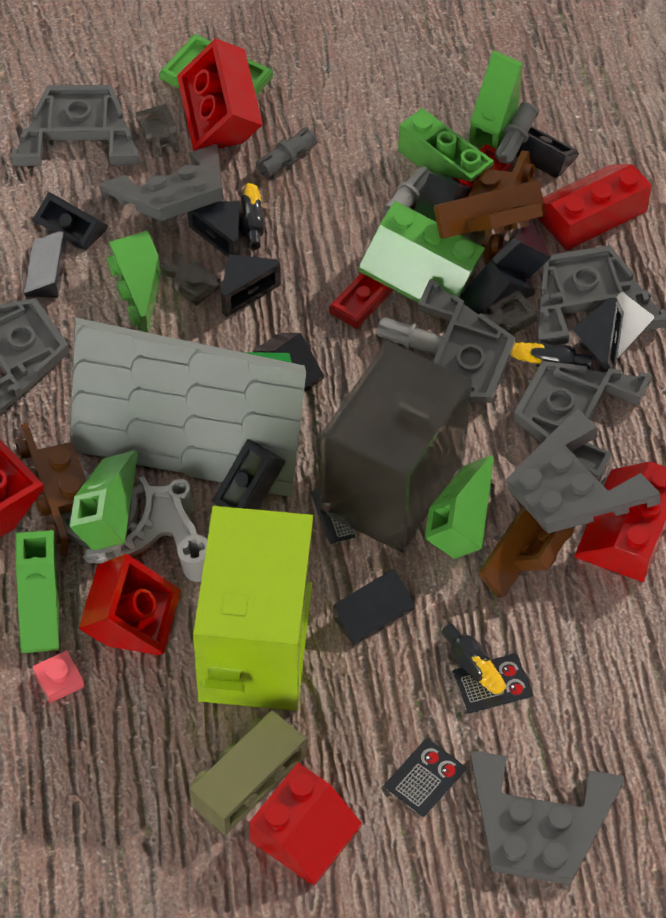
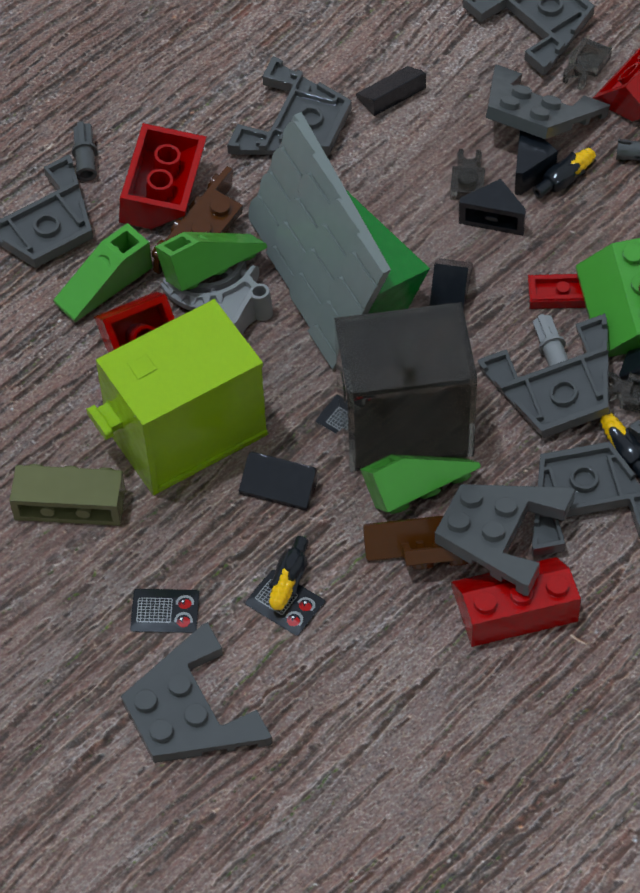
camera: 55 degrees right, 0 degrees up
(58, 676) = (53, 336): coral plate -> none
(62, 216) = (448, 73): black slope -> none
(138, 271) = (431, 146): bright green slope -> none
(249, 478) = (305, 329): black slope -> none
(304, 824) = (54, 556): red slope -> none

